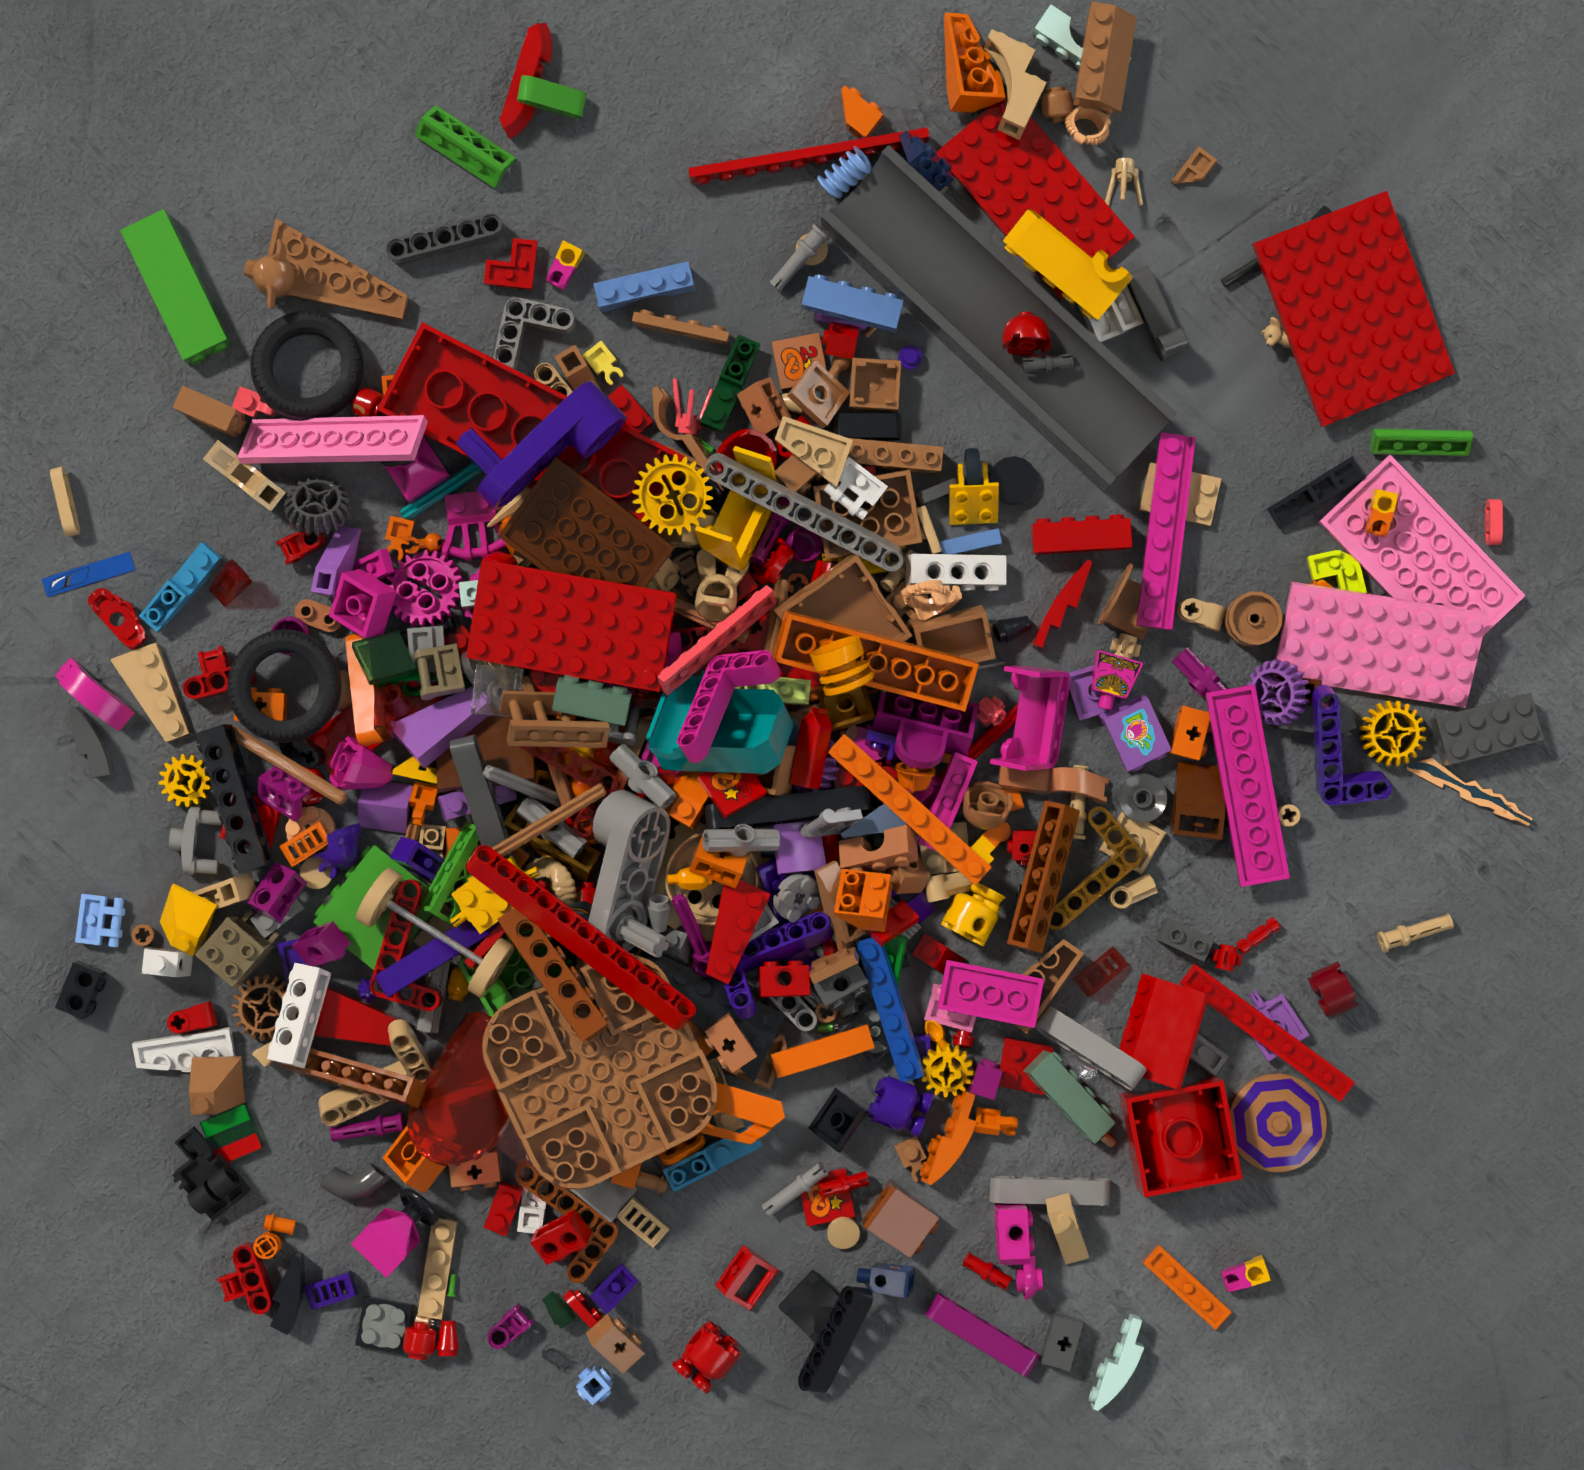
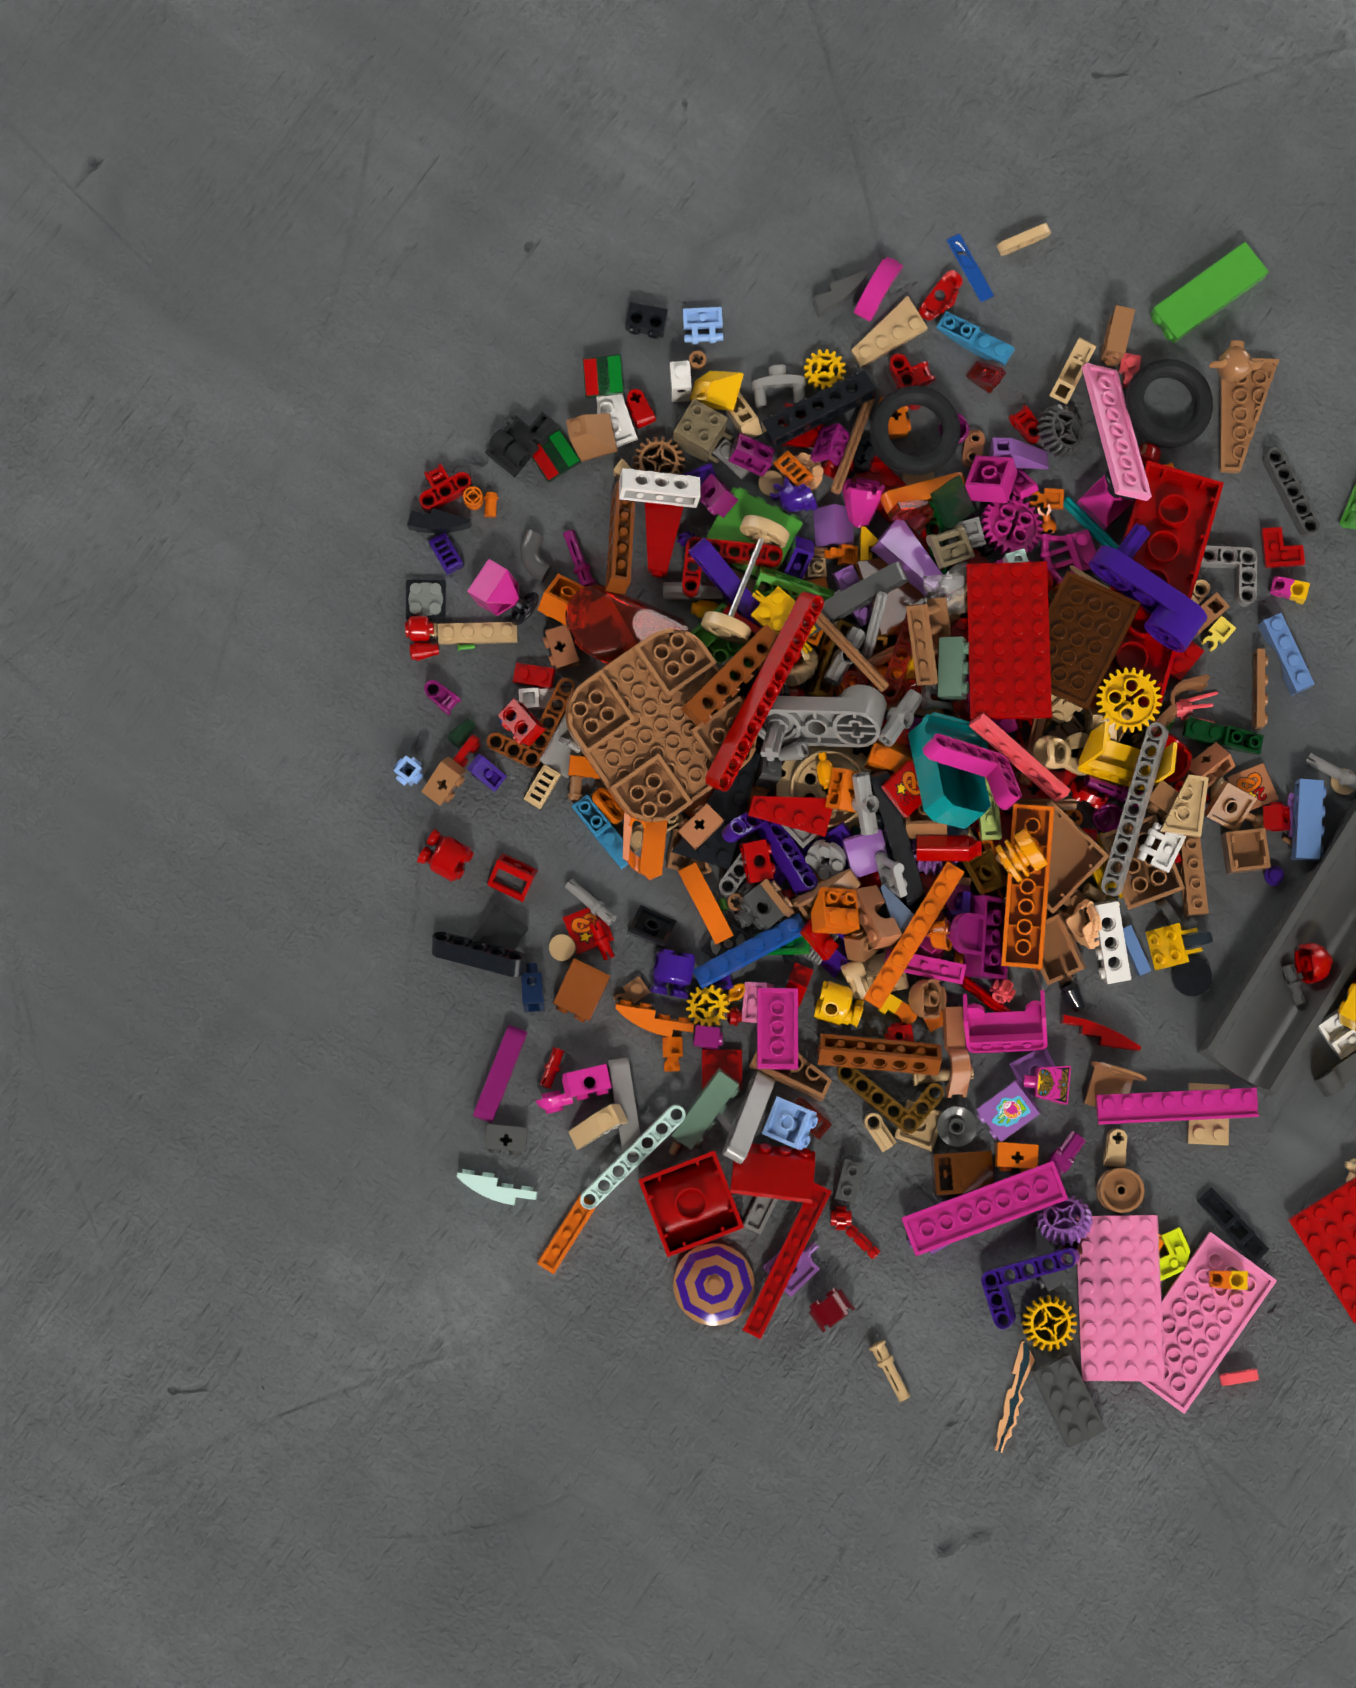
camera: 70 degrees right, 5 degrees down
(143, 1057) = (603, 376): none -> tile
(413, 1062) = (600, 552): tan beam -> none
(701, 948) = (783, 781): magenta axle -> none
(867, 426) = (1212, 851): black beam -> none
(927, 530) = (1137, 913): tan plate -> none
(1081, 536) = (1158, 1038): red brick -> none
(1106, 998) = (790, 1123): none -> light blue plate
(1122, 1200) = (629, 1166): none -> light aqua beam
(1126, 646) = (1077, 1091): tan gear -> none
(1245, 1274) = (586, 1279): leg -> none
(1293, 819) = (971, 1249): tan bush -> none
(1421, 442) = (1292, 1305): bright green brick -> none

